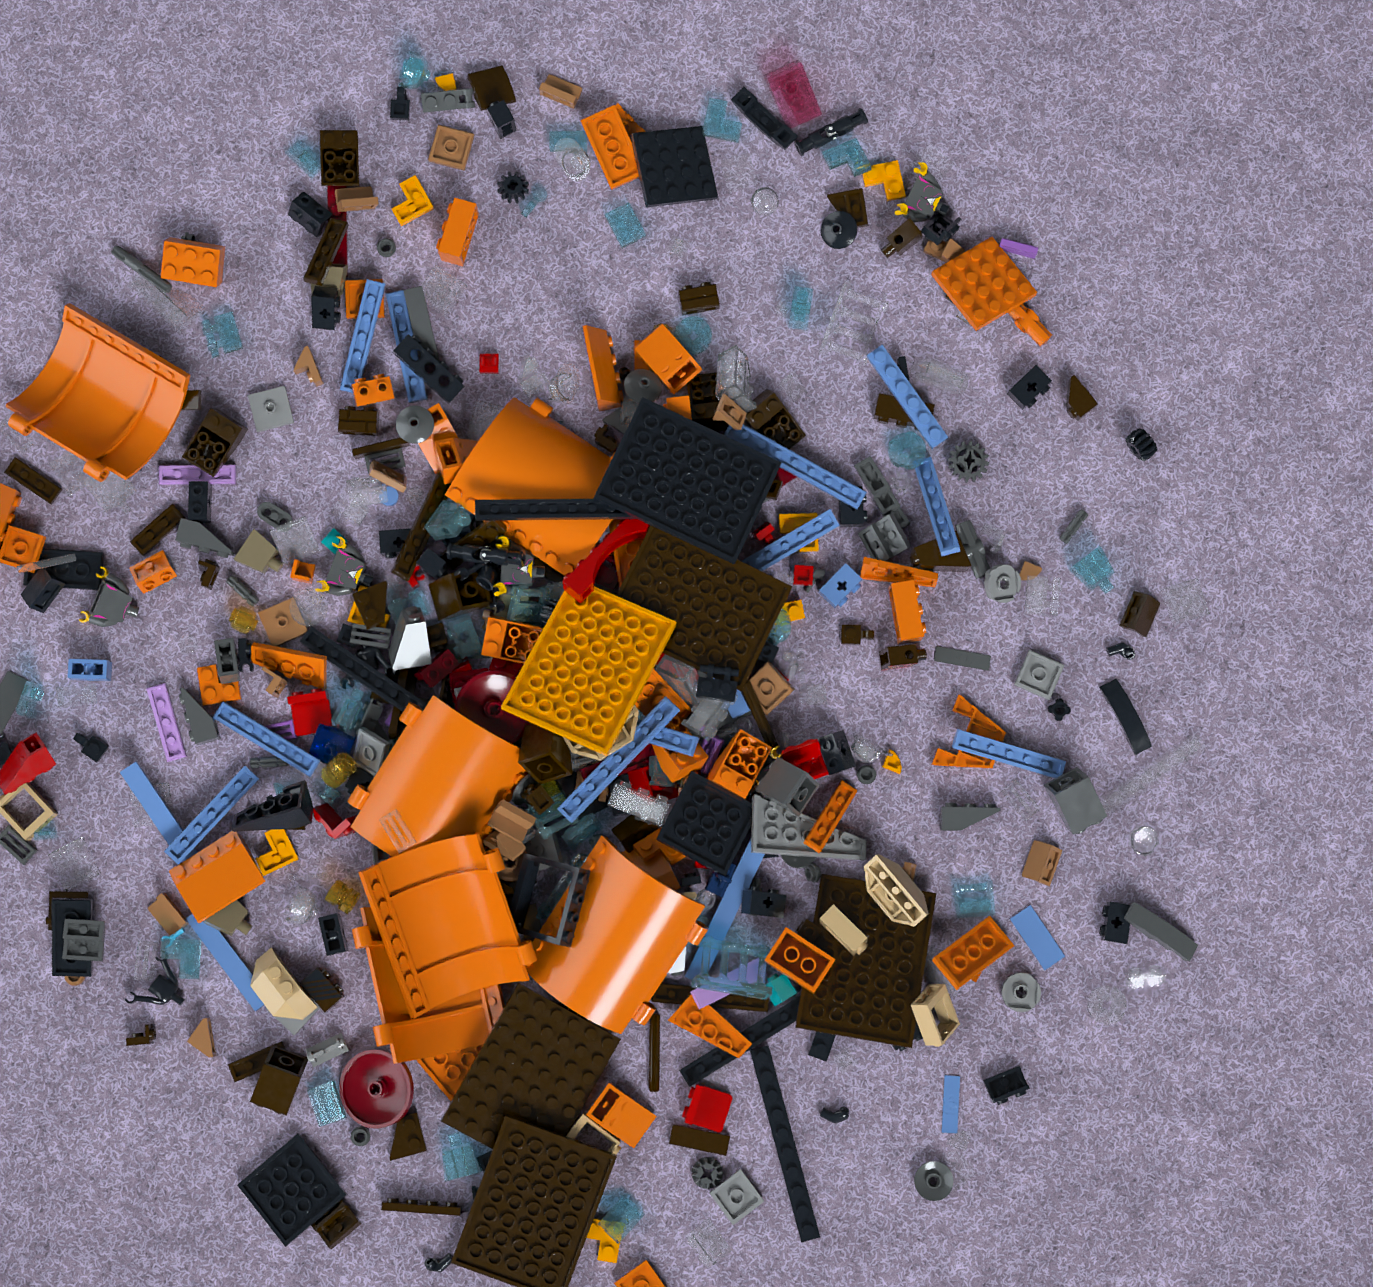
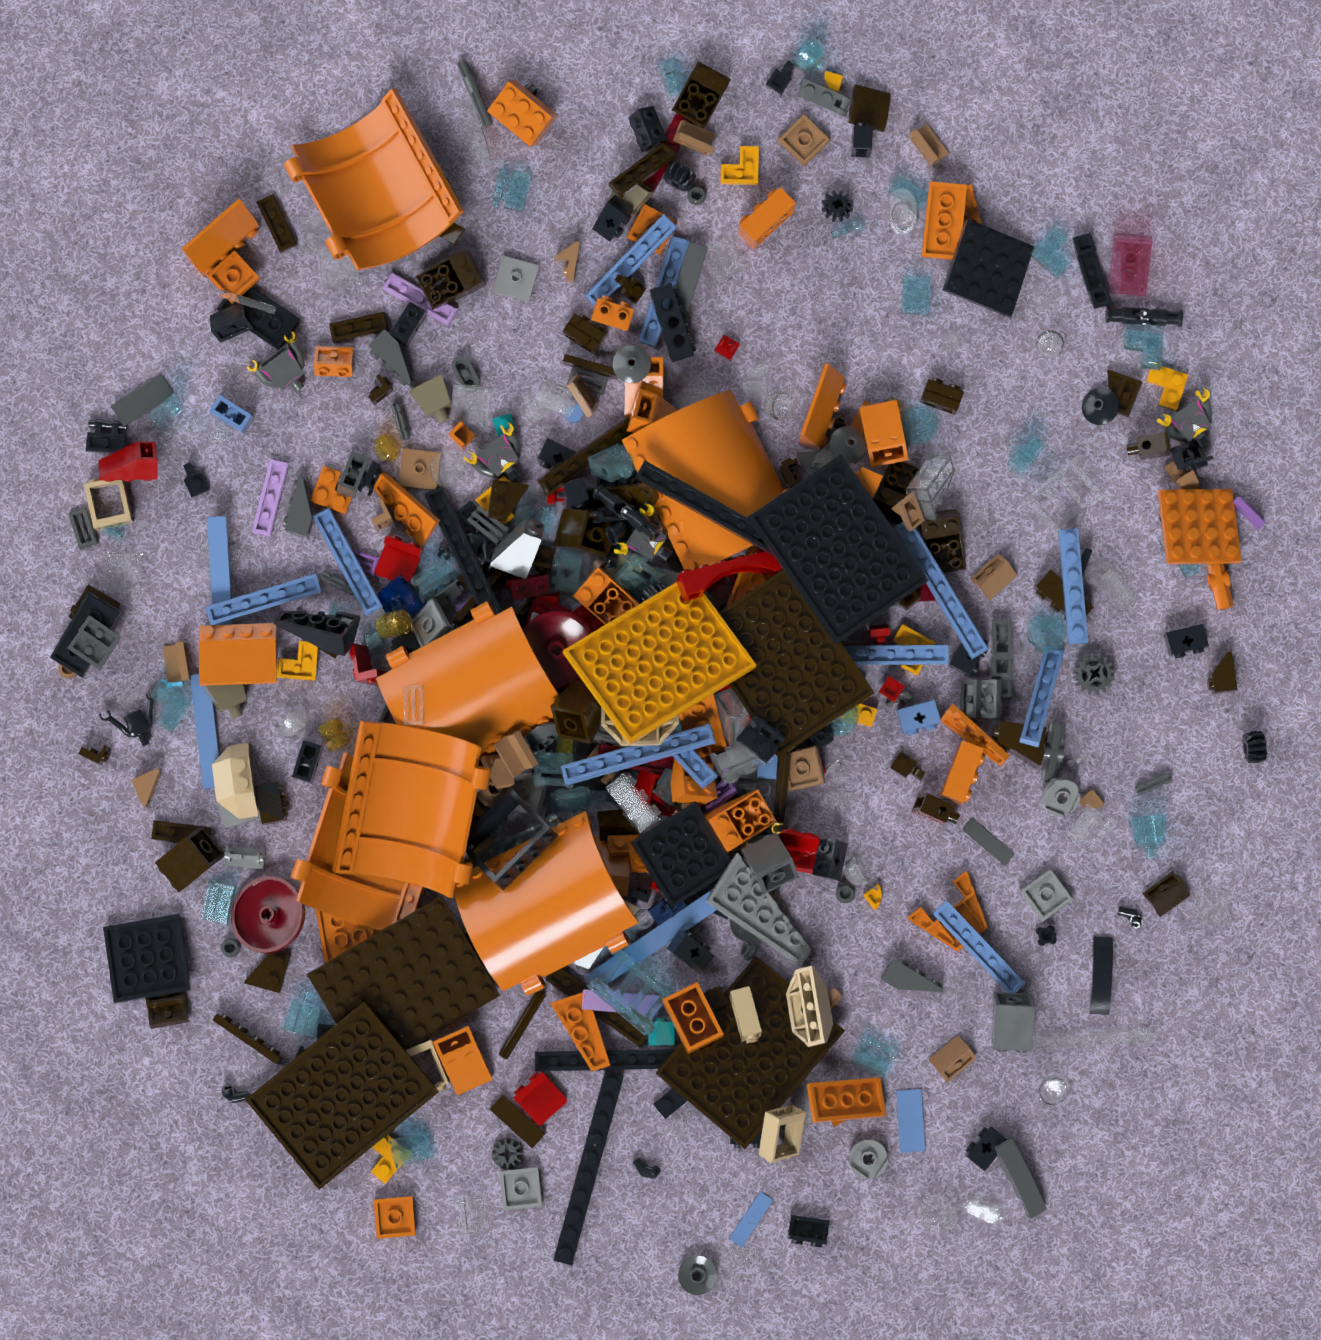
camera: 30 degrees right, 0 degrees up
(361, 239) = (679, 176): none -> black gear
(376, 359) = (631, 288): none -> dark brown plate
(537, 797) = (549, 747): dark brown bracket -> none
(830, 816) = (792, 910): orange tile -> none
(833, 427) = (993, 576): none -> medium nougat panel
(997, 325) = (1189, 570): none -> clear light blue tile

